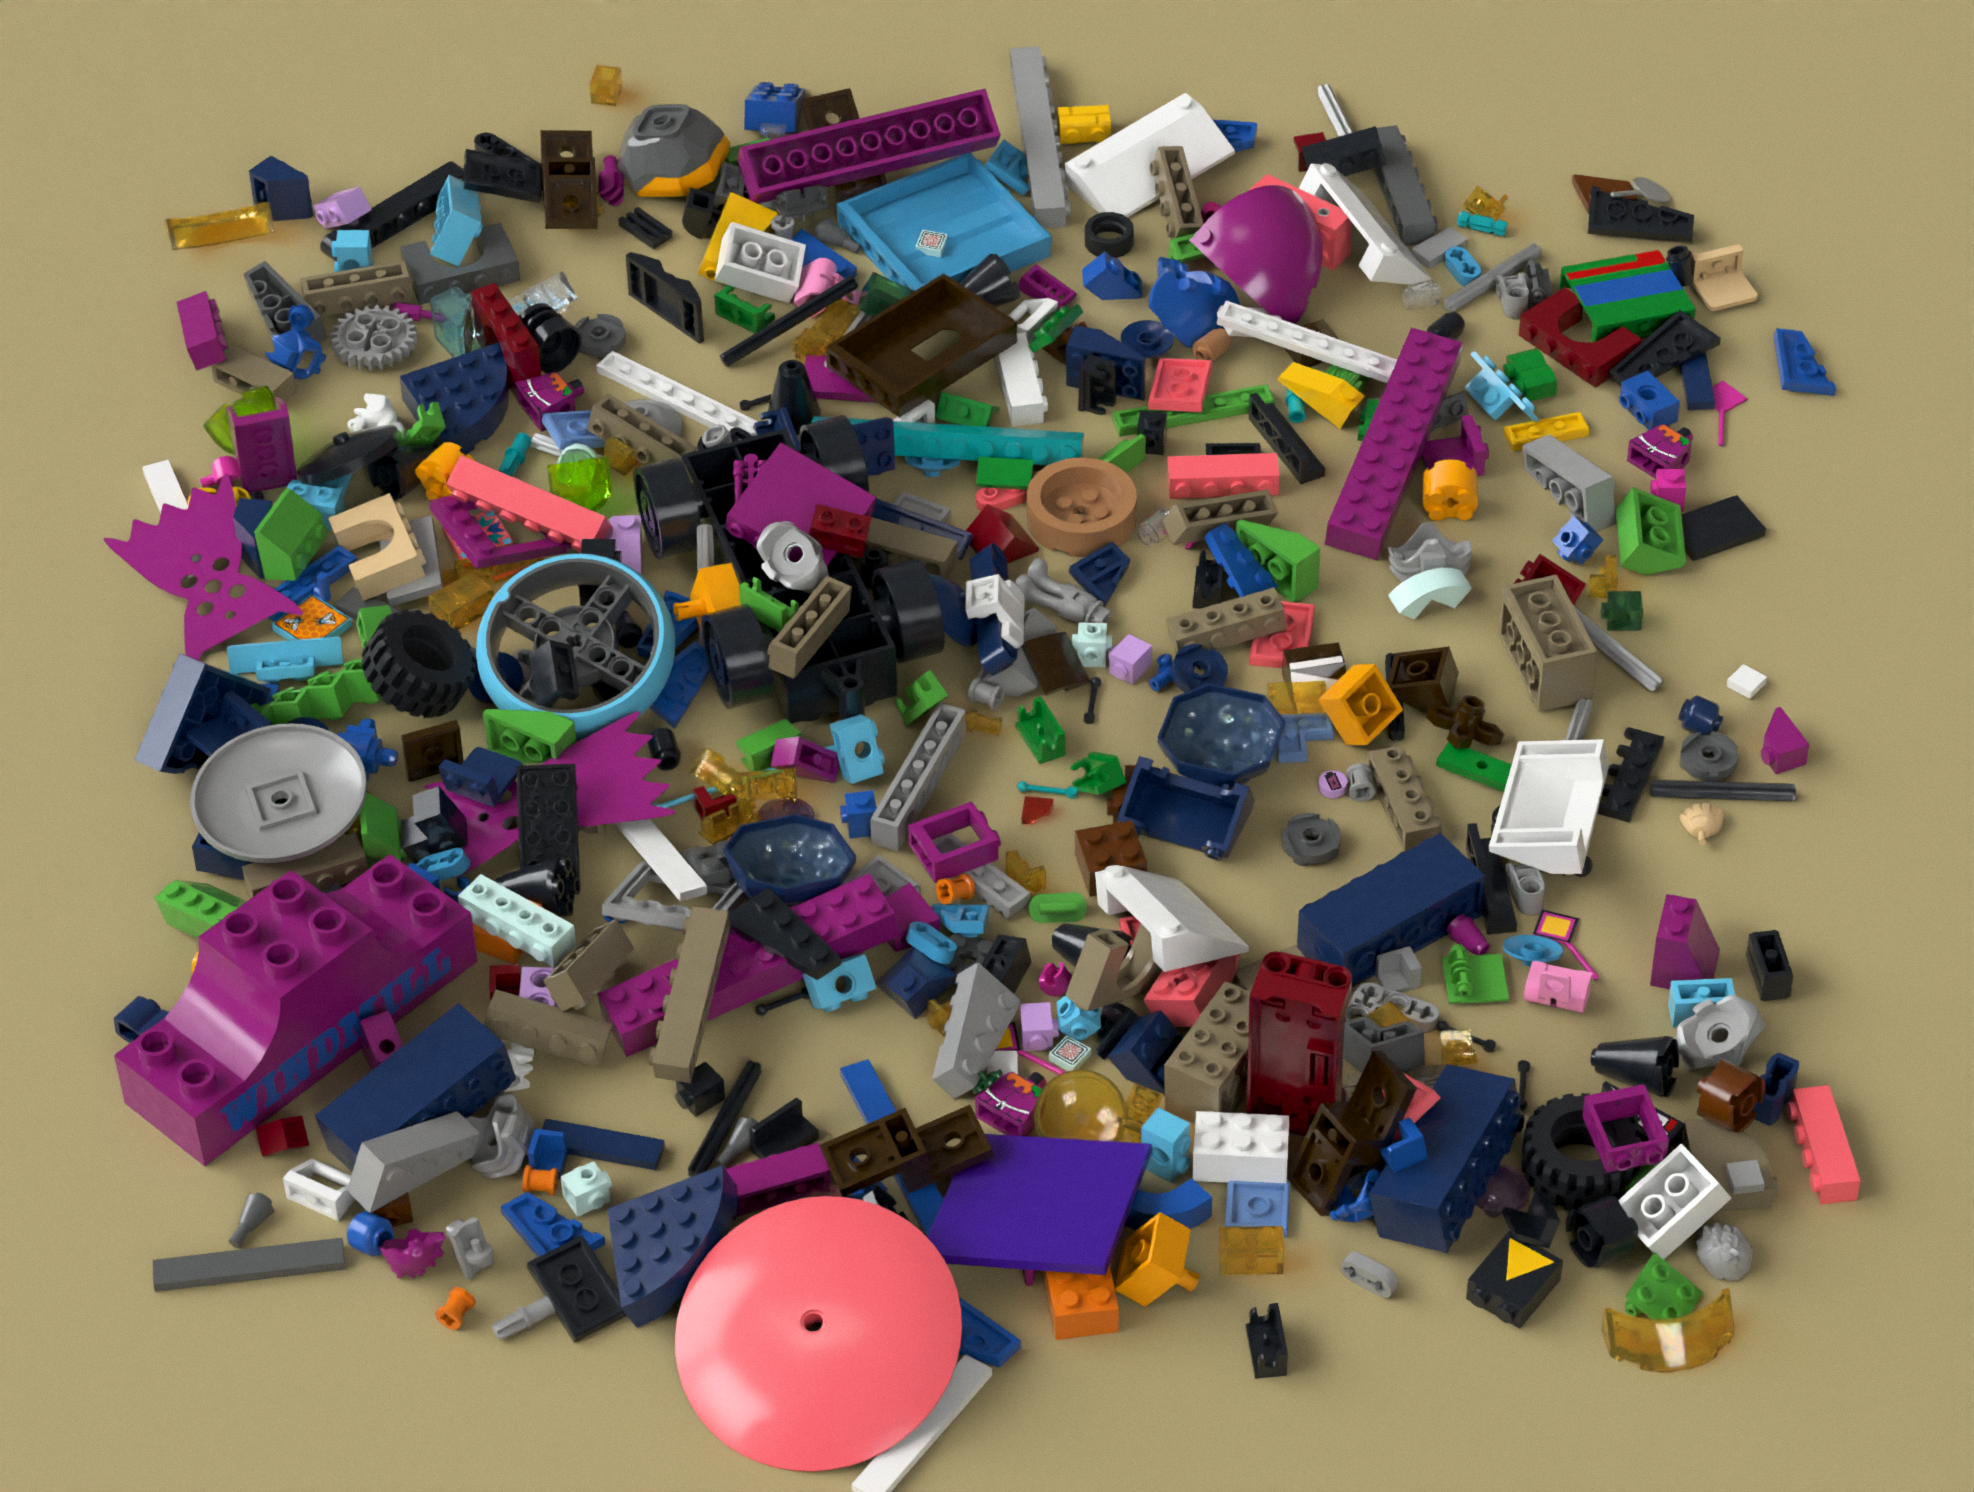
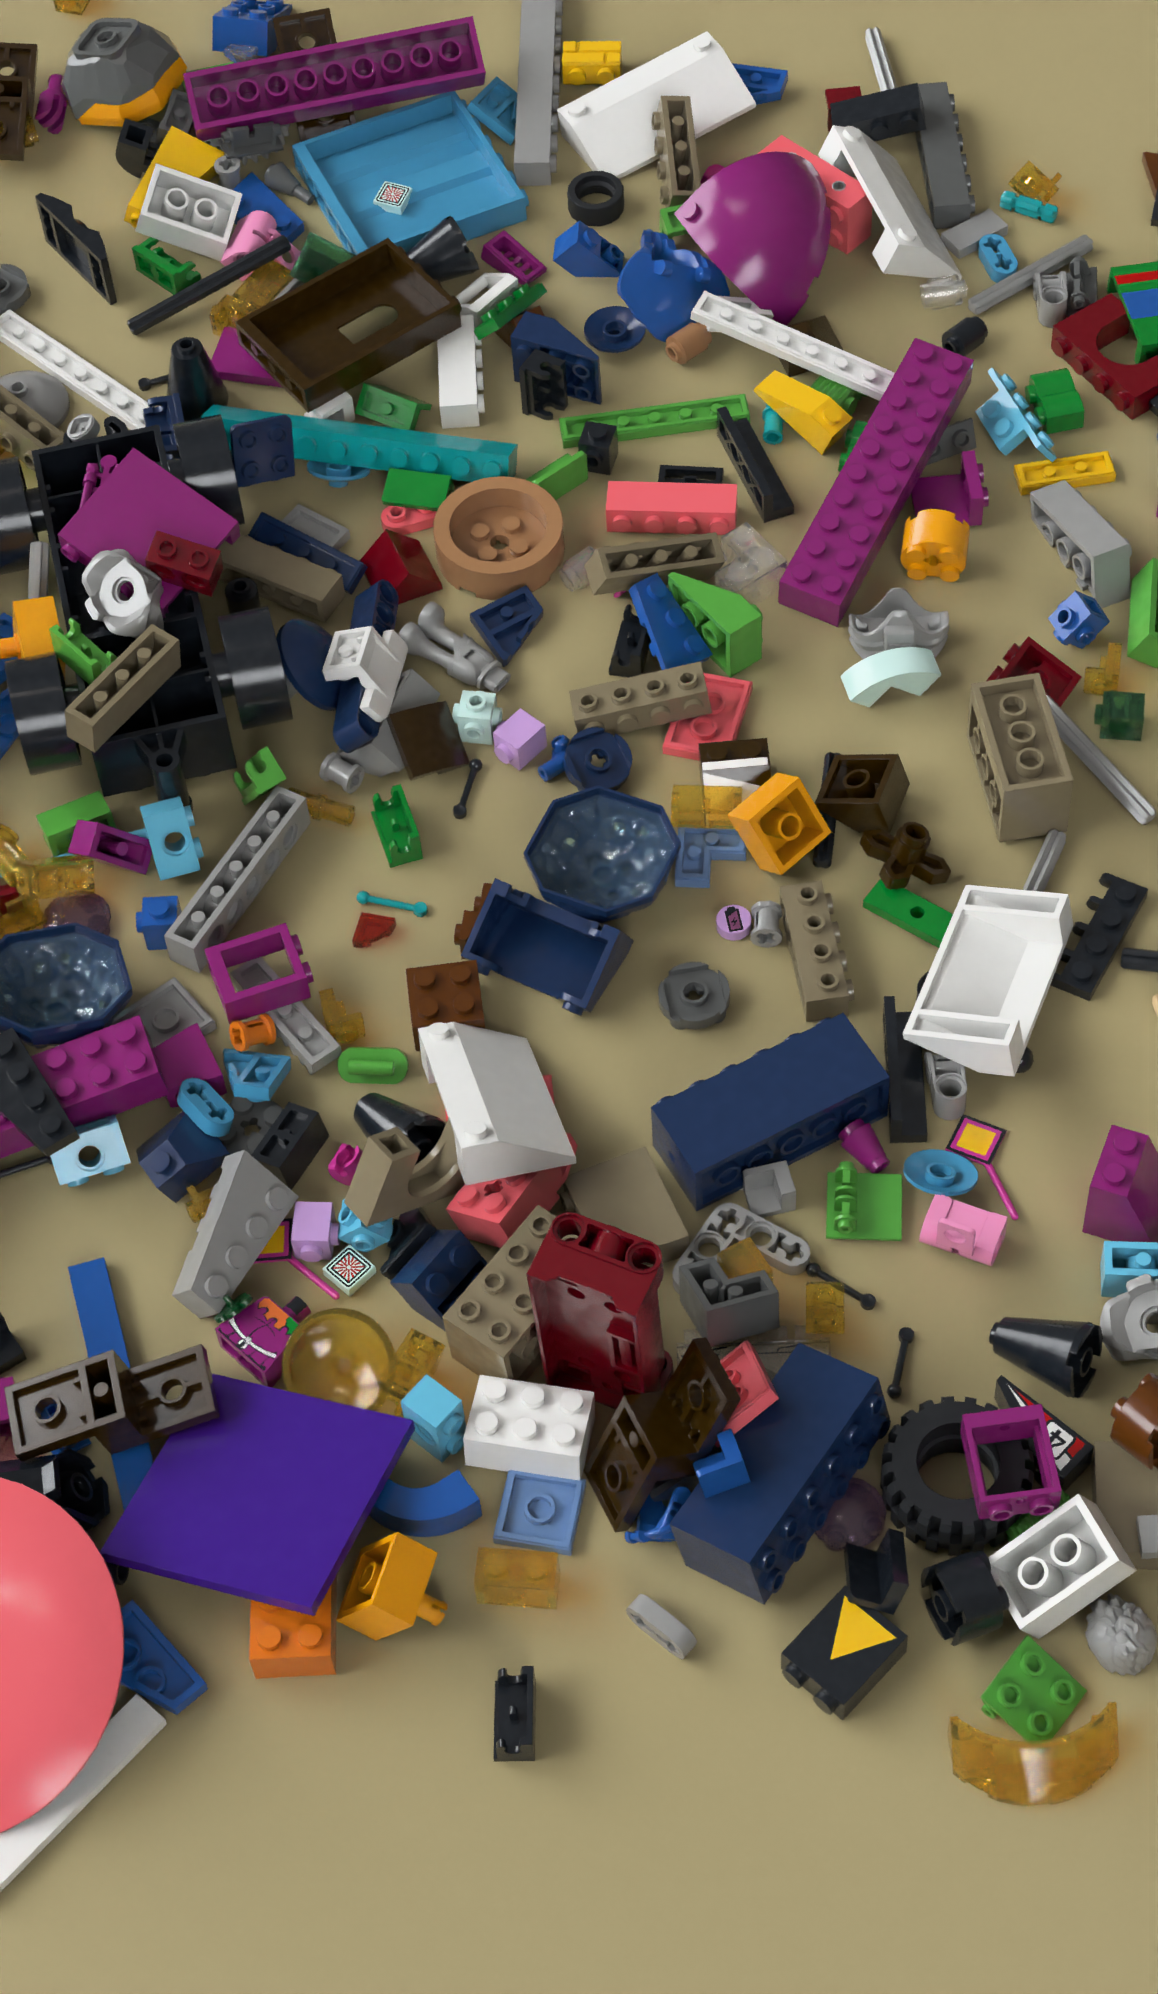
camera: 10 degrees right, 10 degrees up
(649, 227) = (88, 162): black tile -> none
(1003, 1060) = (265, 1279): white tile -> none
(1101, 773) = (454, 893): green hinge -> none
(1180, 385) = (643, 389): coral tile -> none
(1300, 512) = (750, 565): none -> clear brick

